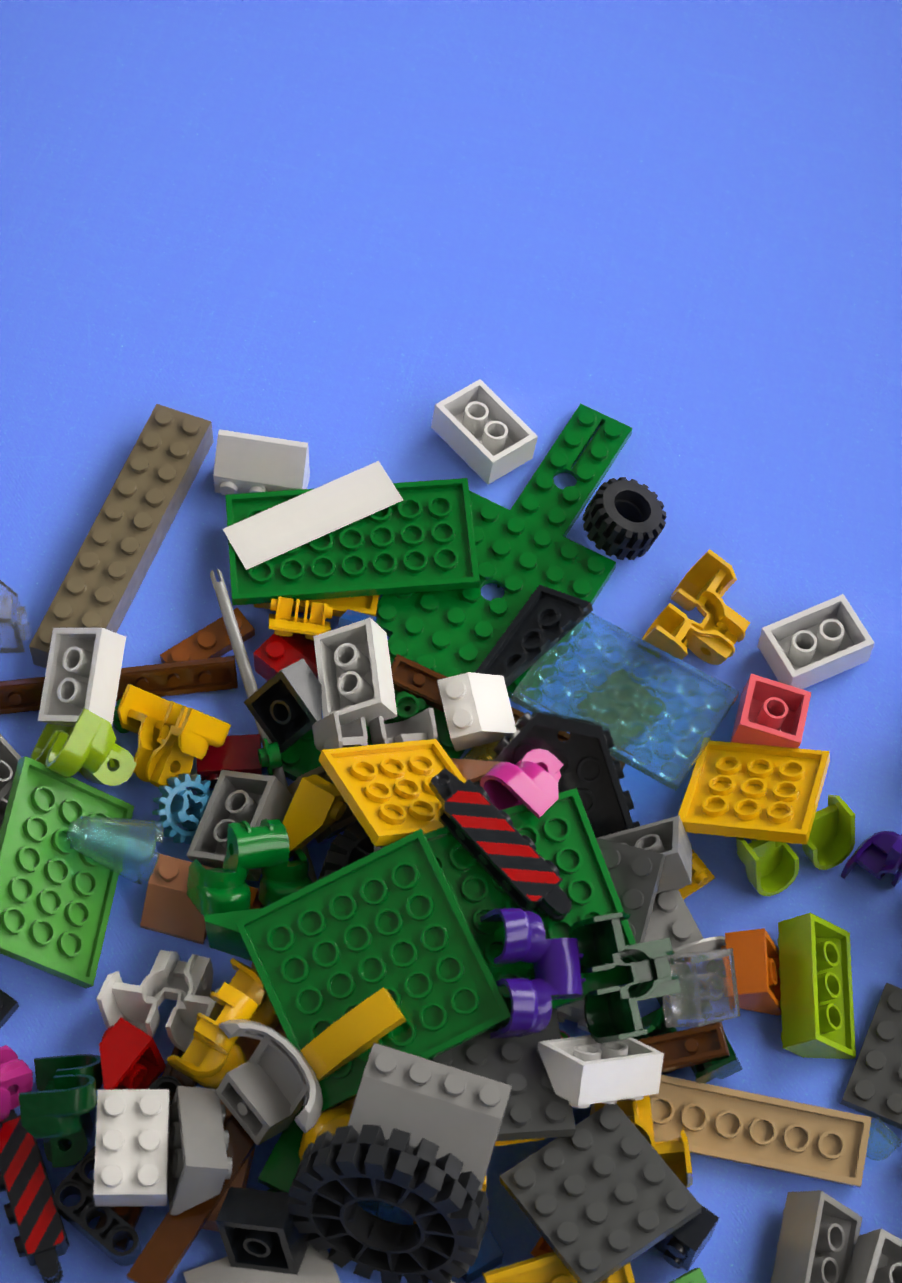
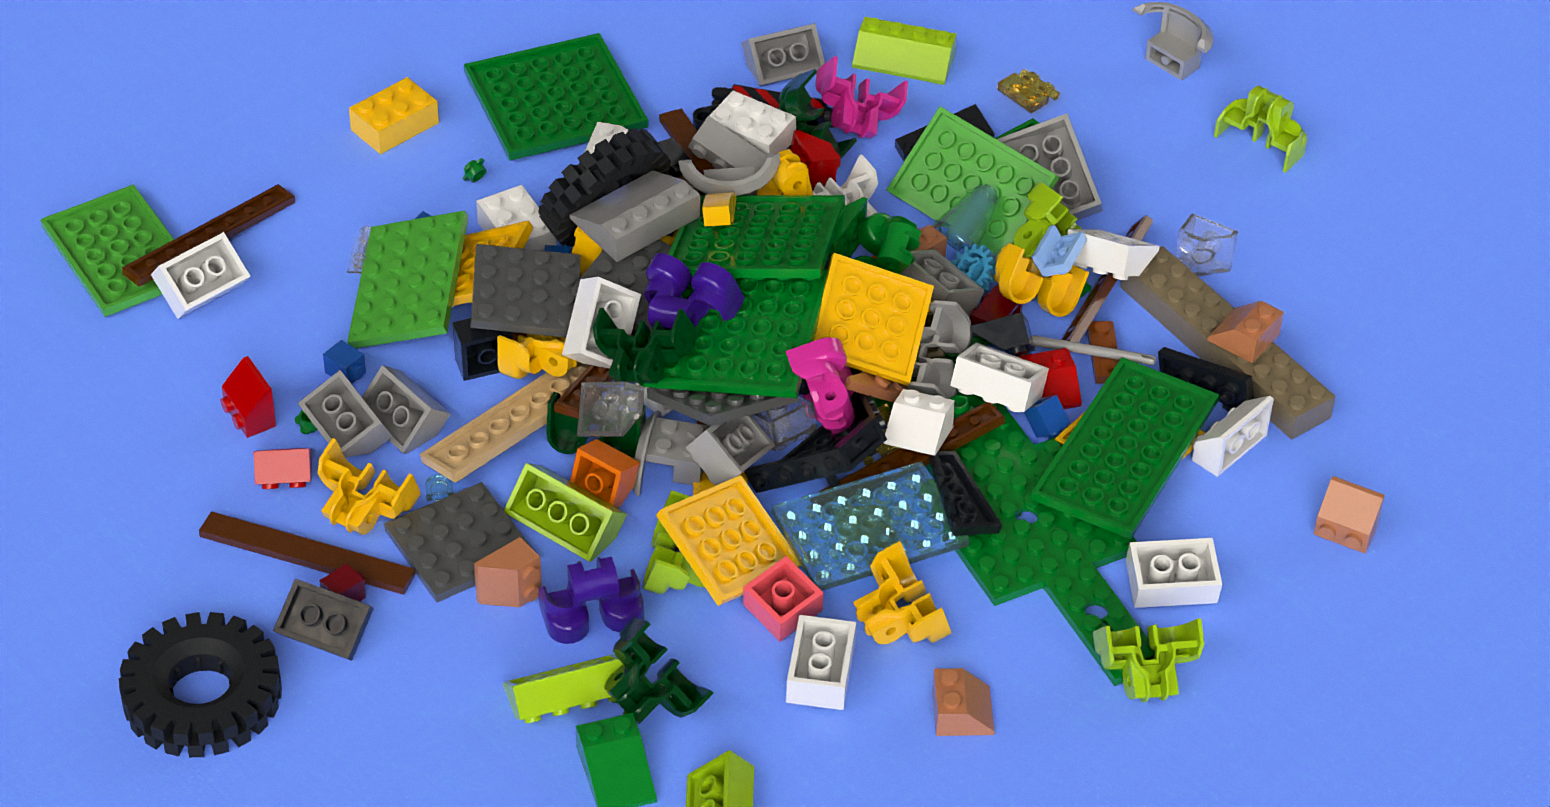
camera: 125 degrees right, 15 degrees down
(129, 496) = (1248, 330): none -> nougat slope
(132, 709) = (1057, 252): none -> light blue bracket
(202, 484) = (1230, 384): none -> black wing
(269, 756) = (976, 314): green plate -> none
(286, 625) = (1074, 385): yellow hinge -> none
(307, 337) = (1349, 514): none -> slope
(312, 515) = (1163, 431): white sticker -> none
(499, 847) = (779, 317): black hinge -> none
(616, 410) = (1153, 677): none -> lime piece
(624, 518) = (1022, 587): black tyre -> none
(761, 523) = (961, 704): none -> nougat slope

